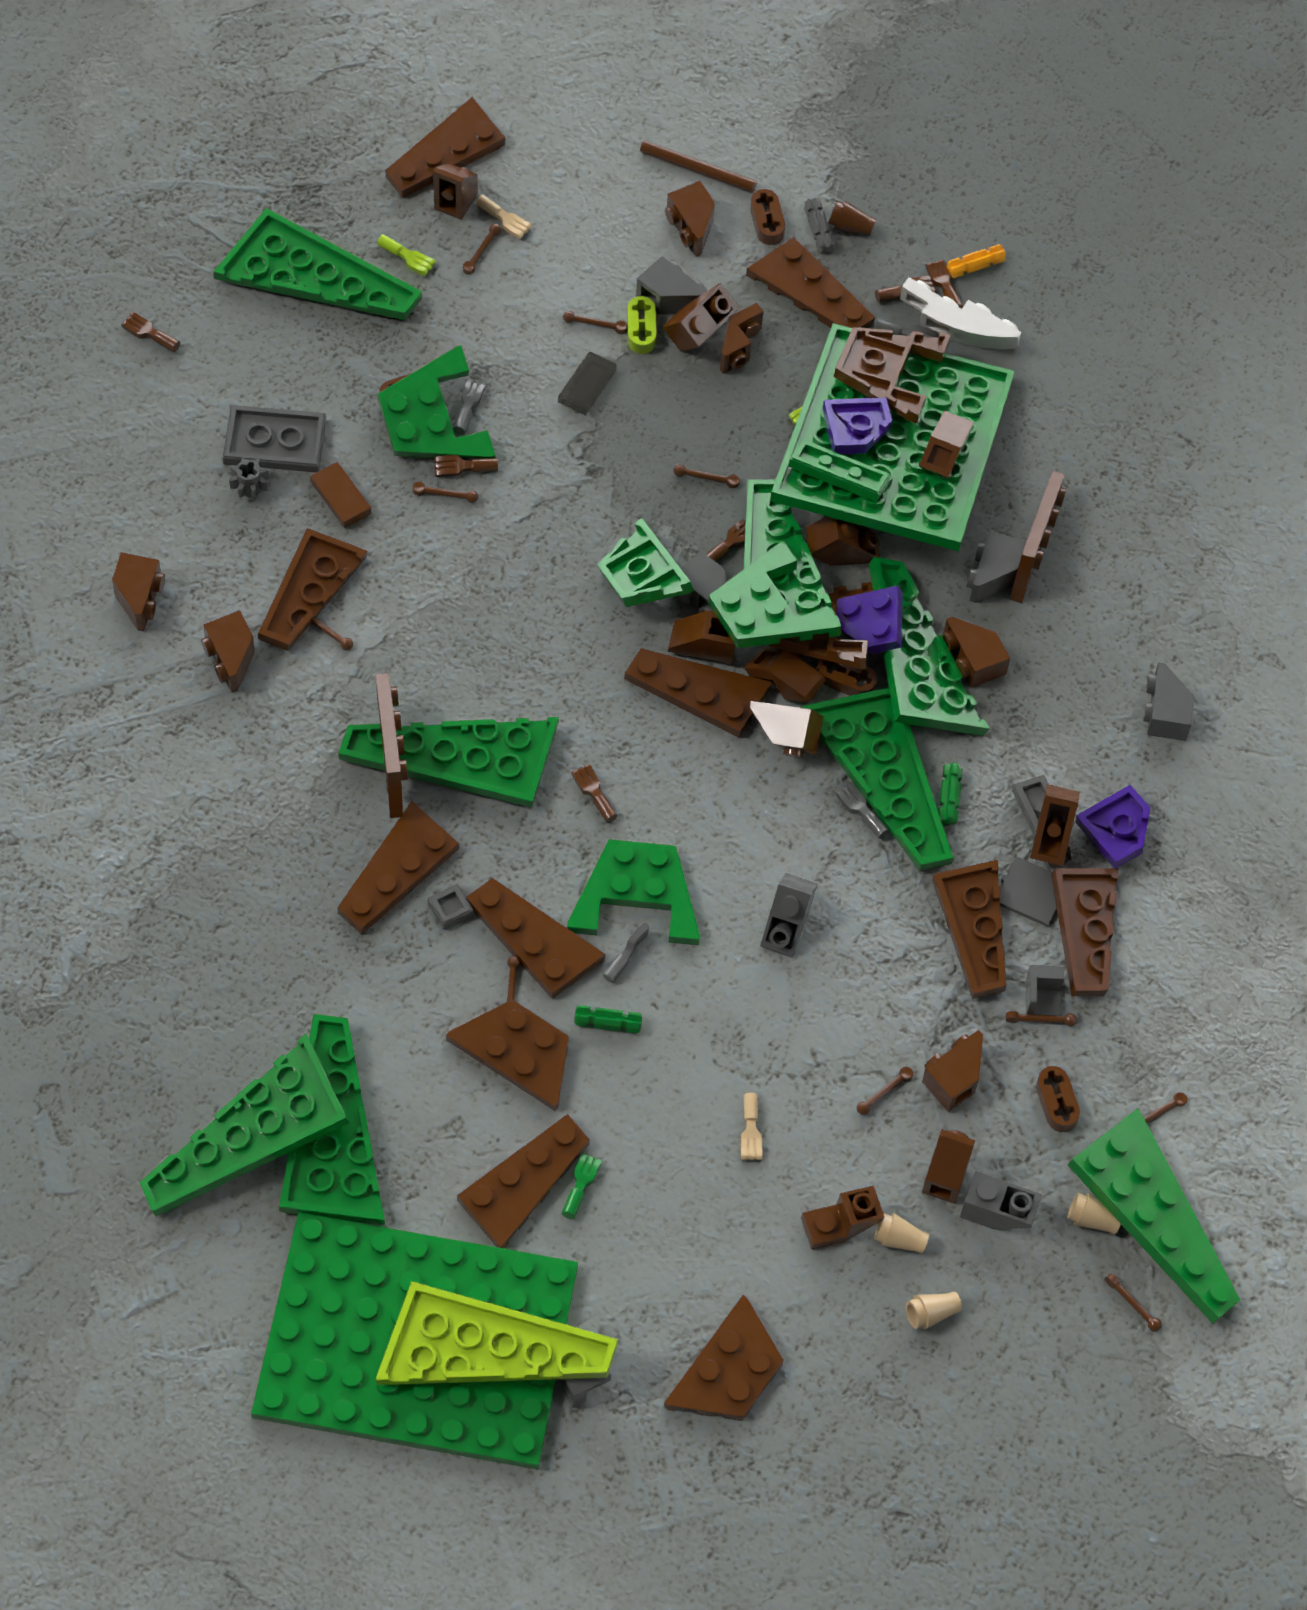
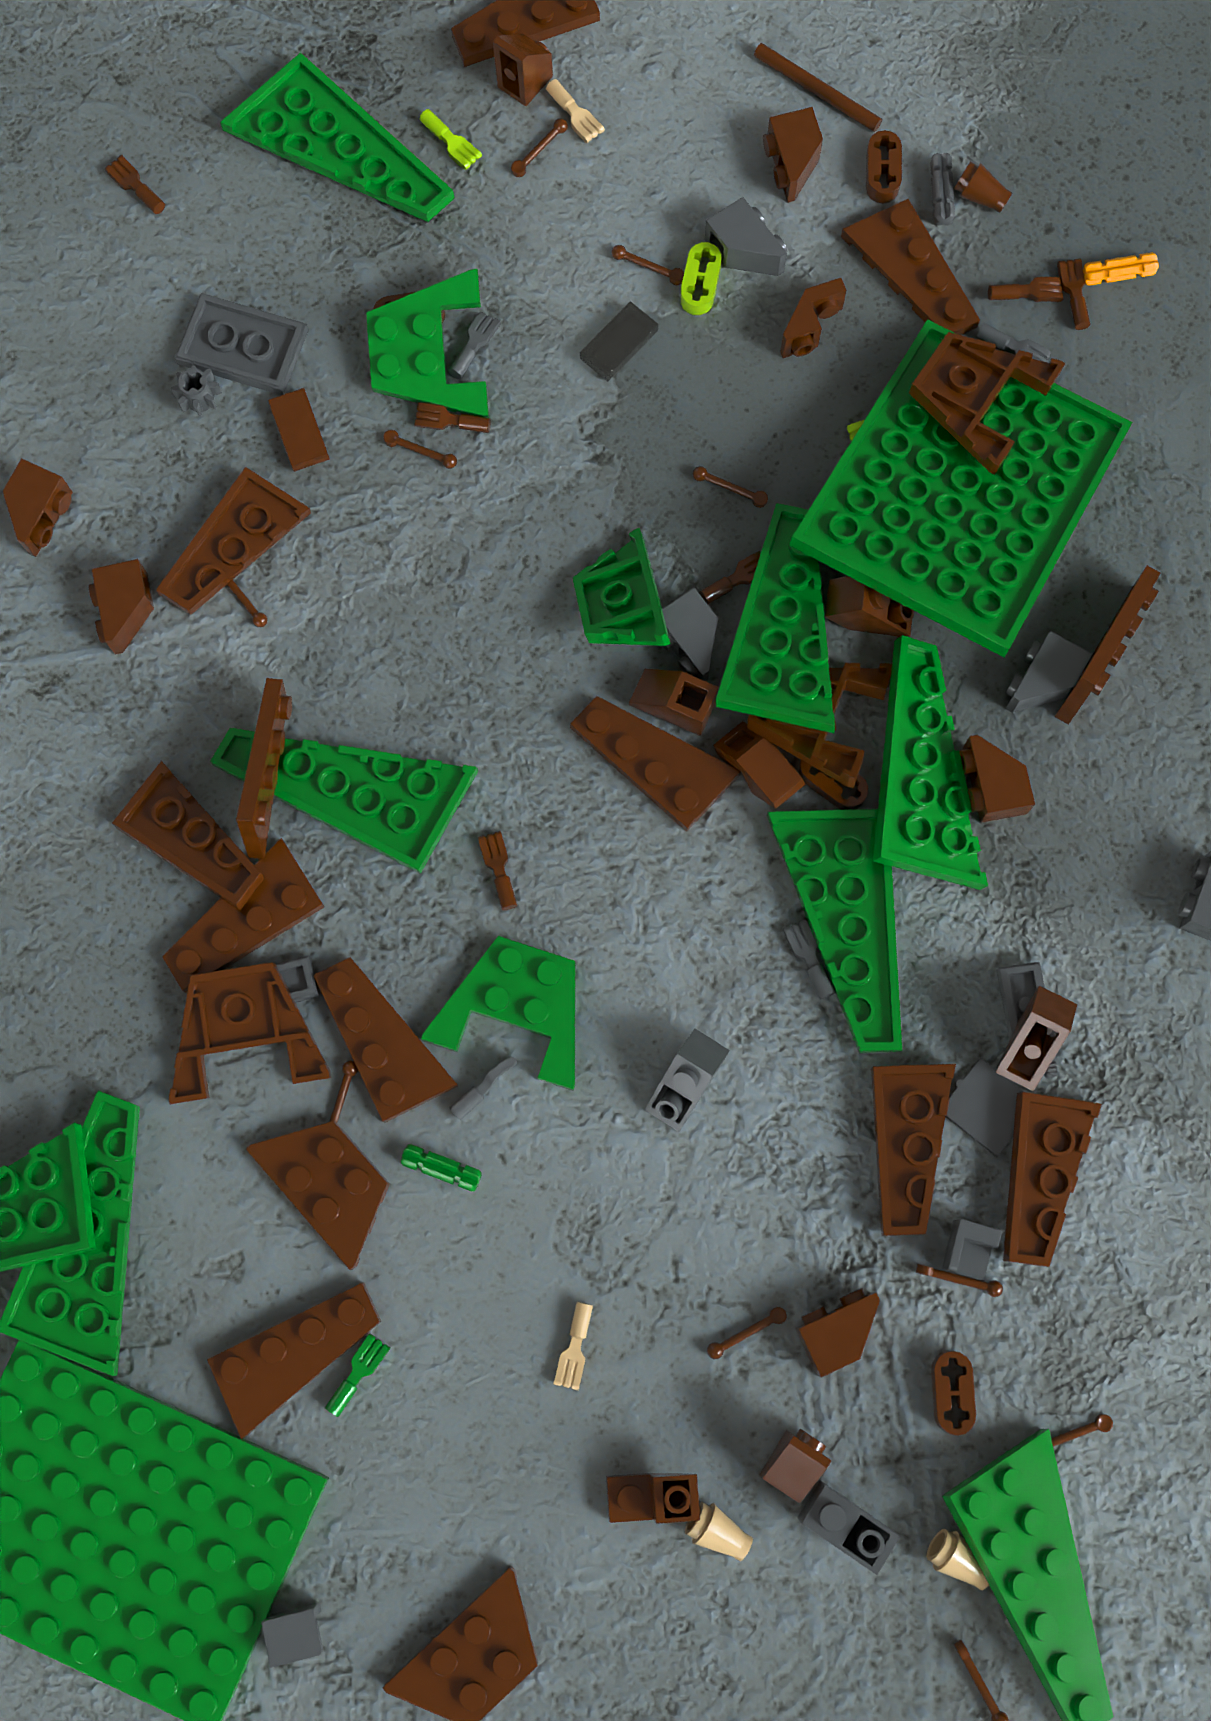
camera: 20 degrees right, 15 degrees up
(325, 810) = (181, 832): none -> reddish brown wing
(415, 934) = (238, 1012): none -> reddish brown wing
(469, 1340) = (171, 1573): lime wing -> none
(700, 318) = (770, 284): reddish brown slope -> none
(757, 612) = (737, 687): wing -> none
(790, 727) = (745, 838): slope -> none
(839, 470) = (883, 523): green tile -> none
(856, 423) = (919, 463): dark purple plate -> none
(874, 618) = (879, 719): dark purple plate -> none
(930, 1309) = (732, 1640): tan cone -> none
(946, 444) = (1023, 512): reddish brown slope -> none
(950, 793) = (920, 960): green axle -> none
(970, 325) = (1091, 353): white slope -> none
(1117, 825) = (1114, 1048): dark purple plate -> none

